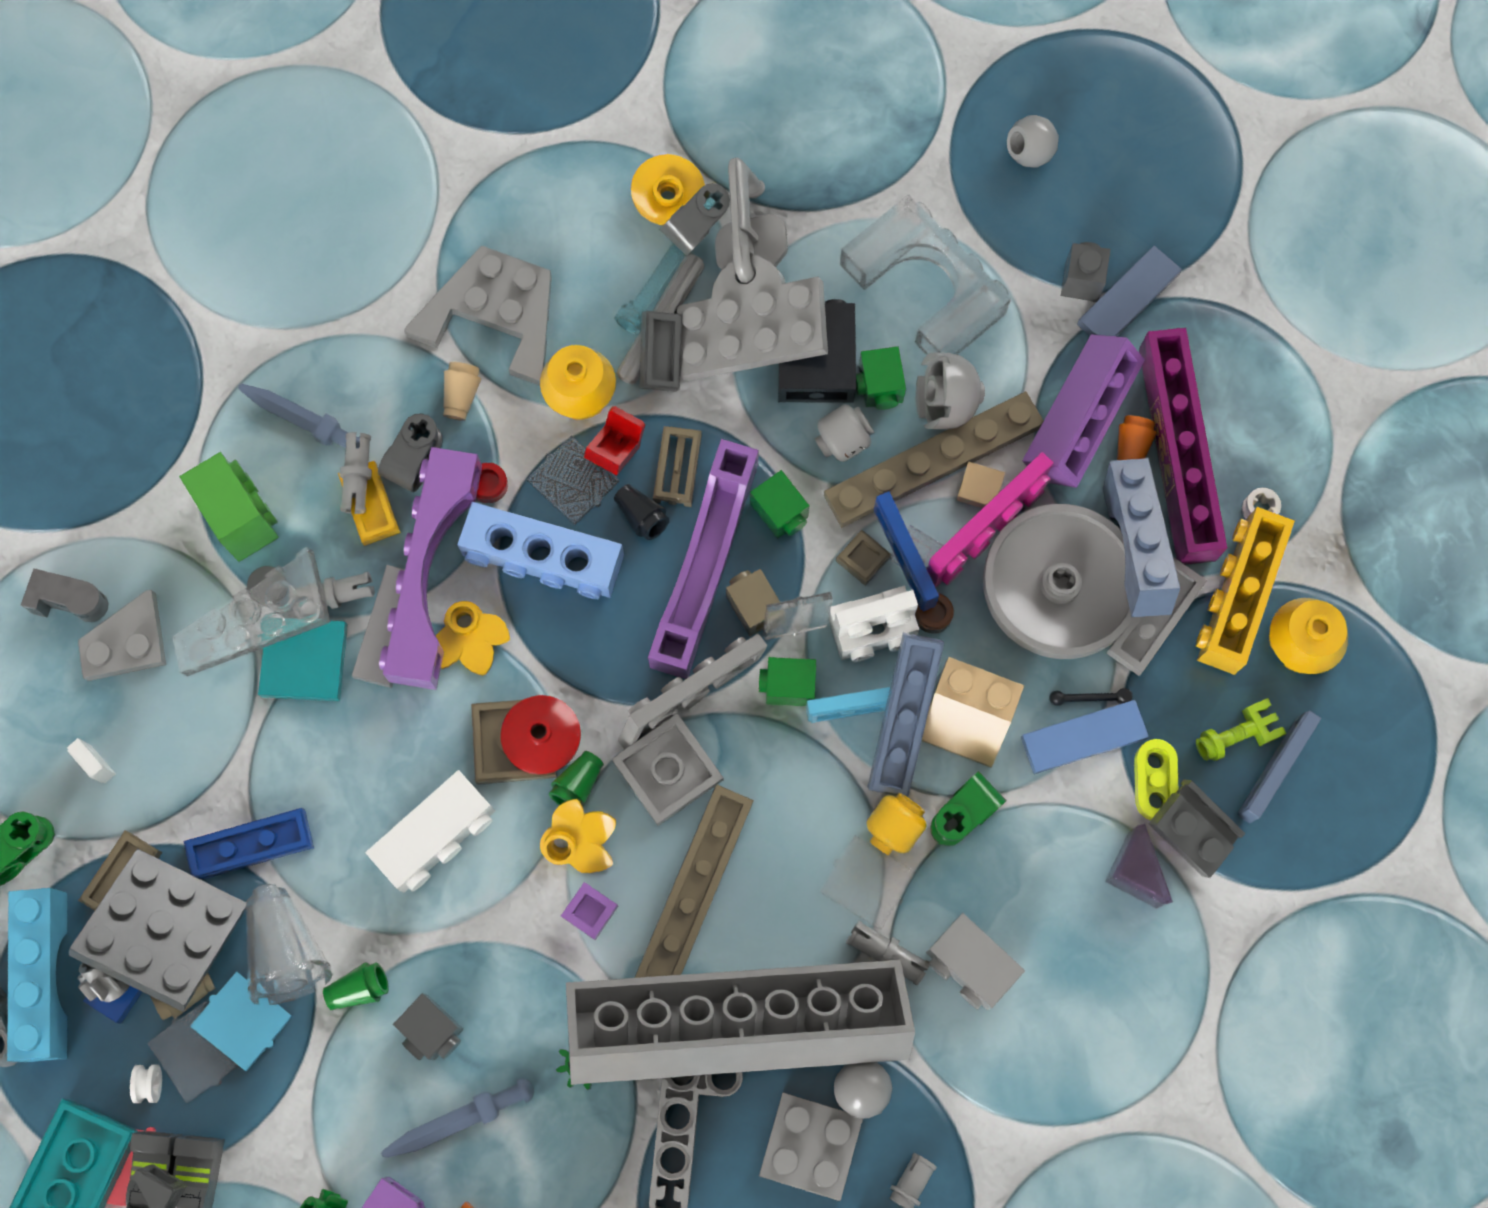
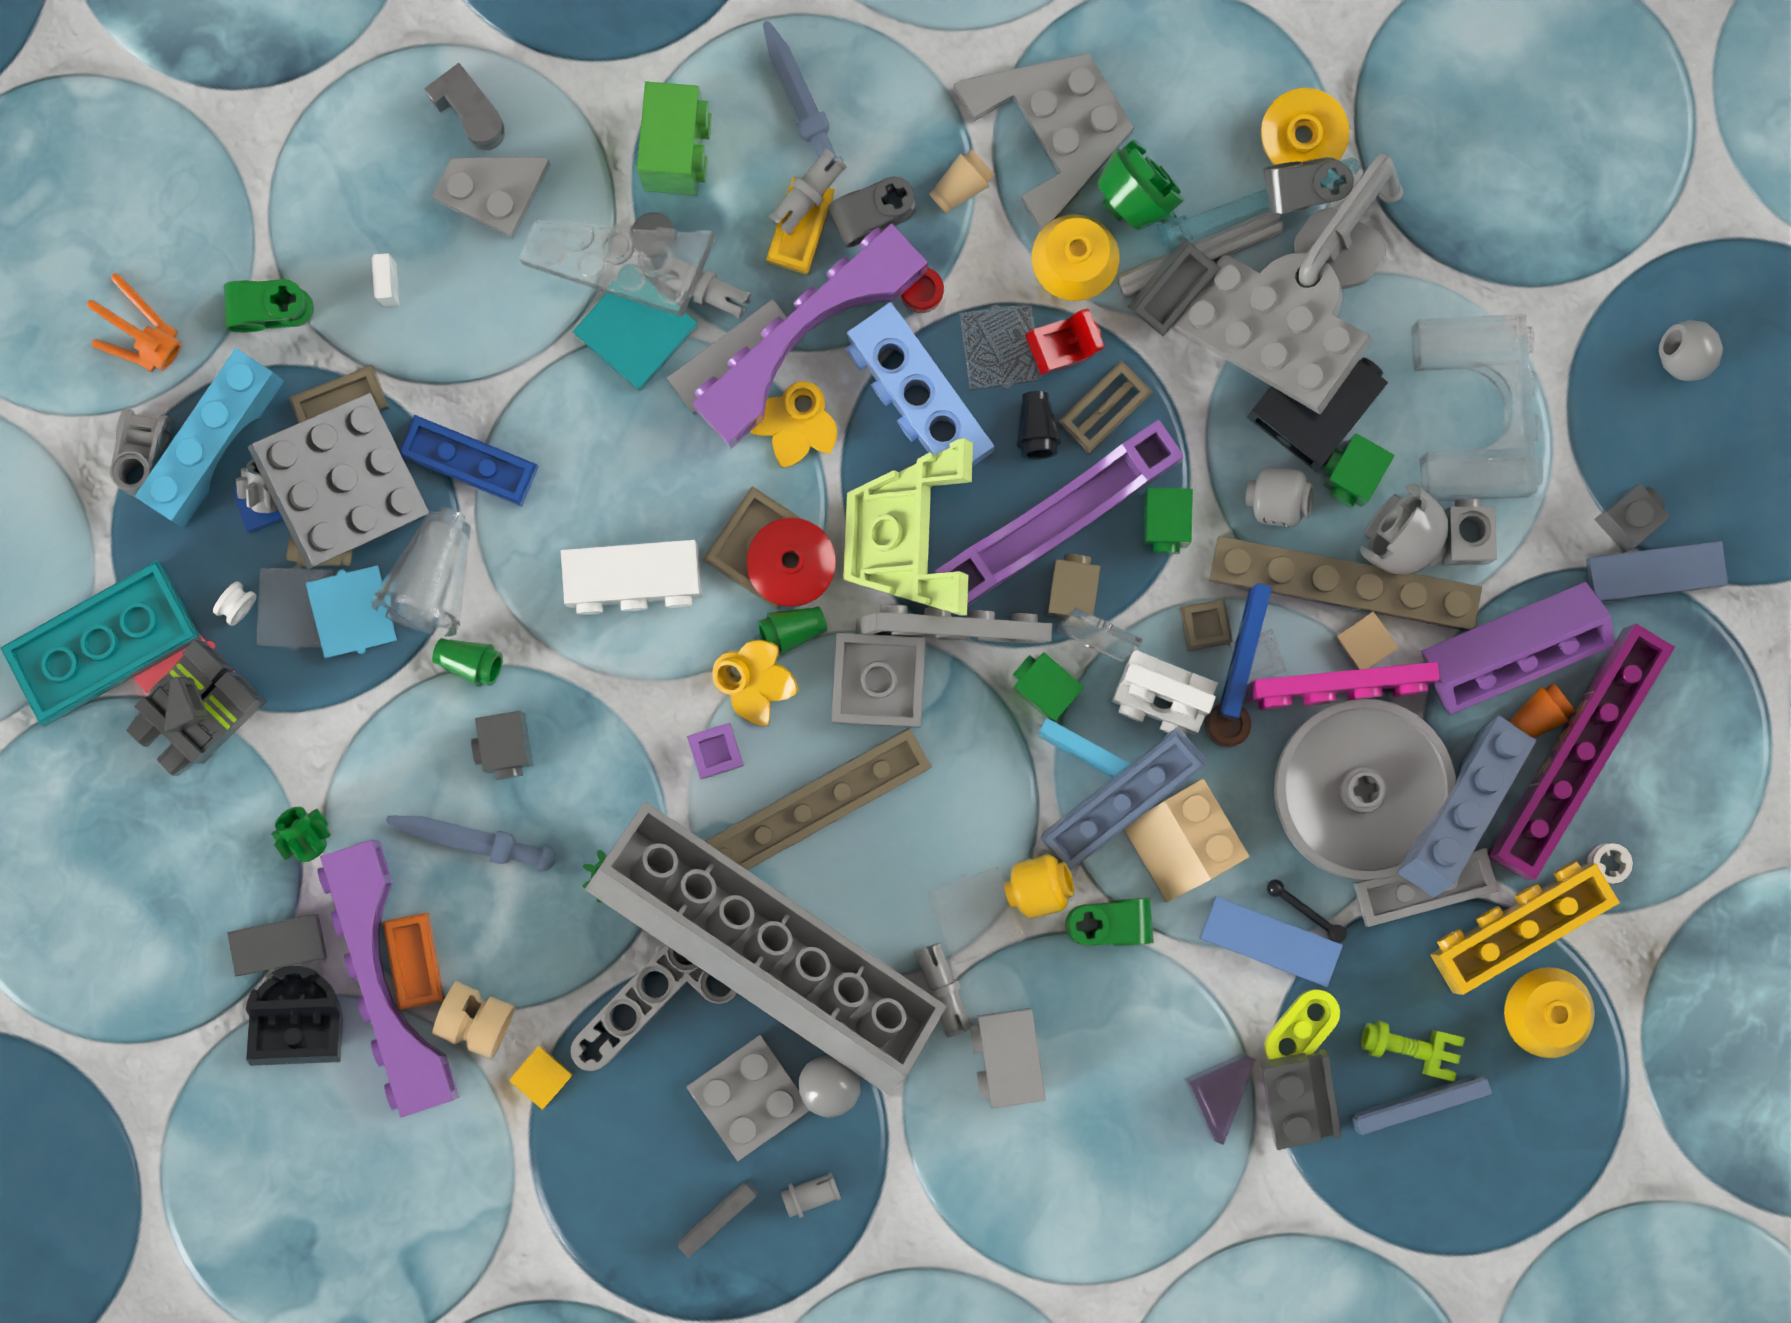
camera: 40 degrees right, 10 degrees up
(584, 303) = (1138, 188): none -> green cone
(594, 656) = (891, 531): none -> yellowish green wing
(1006, 361) = (1467, 553): none -> light grey brick

